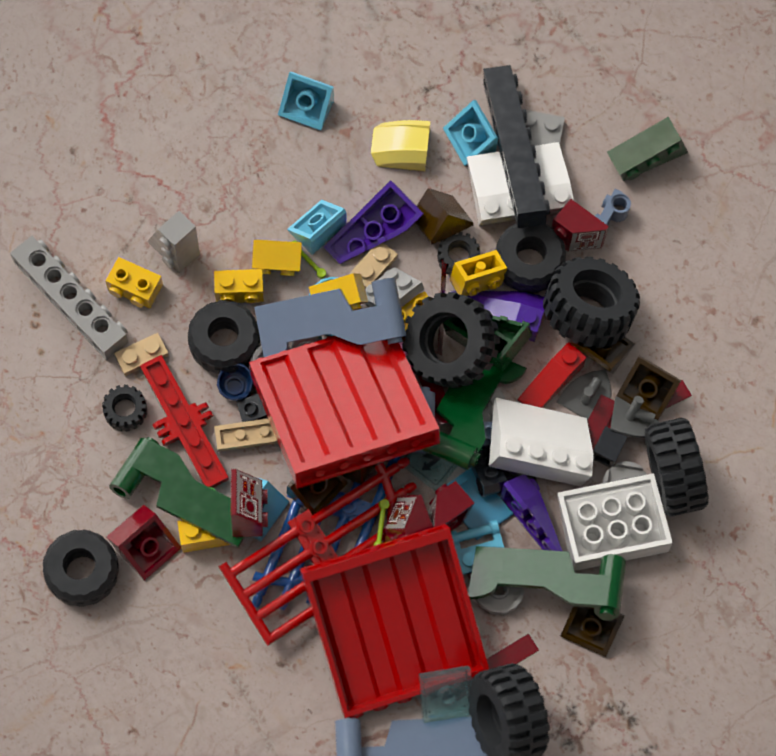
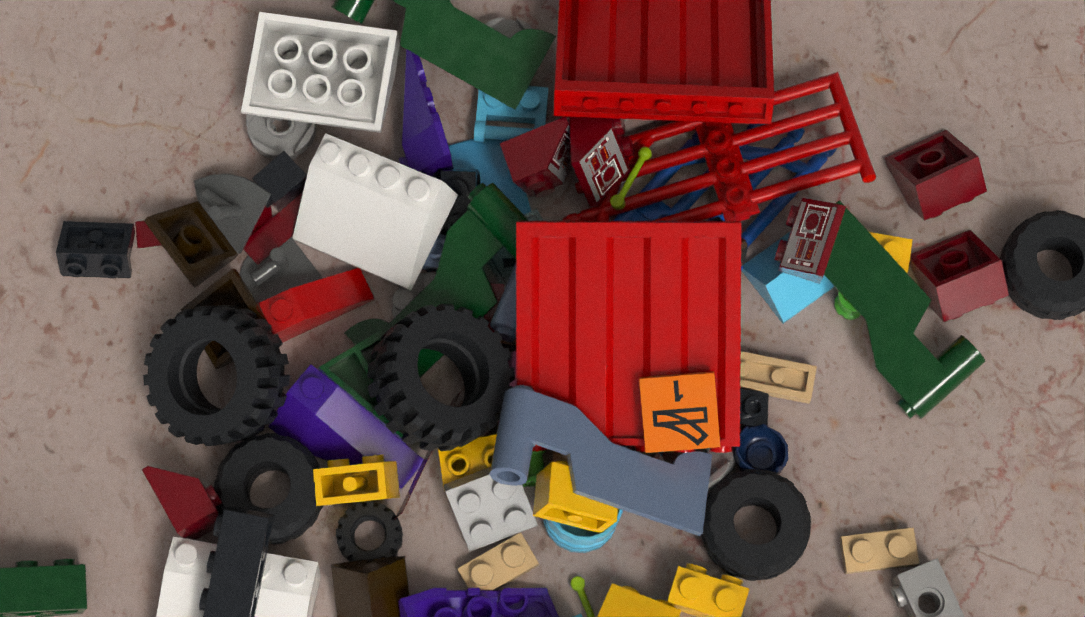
camera: 155 degrees left, 5 degrees up
(118, 395) = (944, 459): black tyre -> none
(179, 605) = (937, 174): none -> dark red slope
(183, 422) = (851, 425): red hinge -> none
(293, 364) = (679, 412): none -> orange tile
(609, 212) = (141, 509): sand blue plate -> none
(677, 466) = (208, 97): black tyre -> none
(707, 365) = (95, 249): none -> black bracket

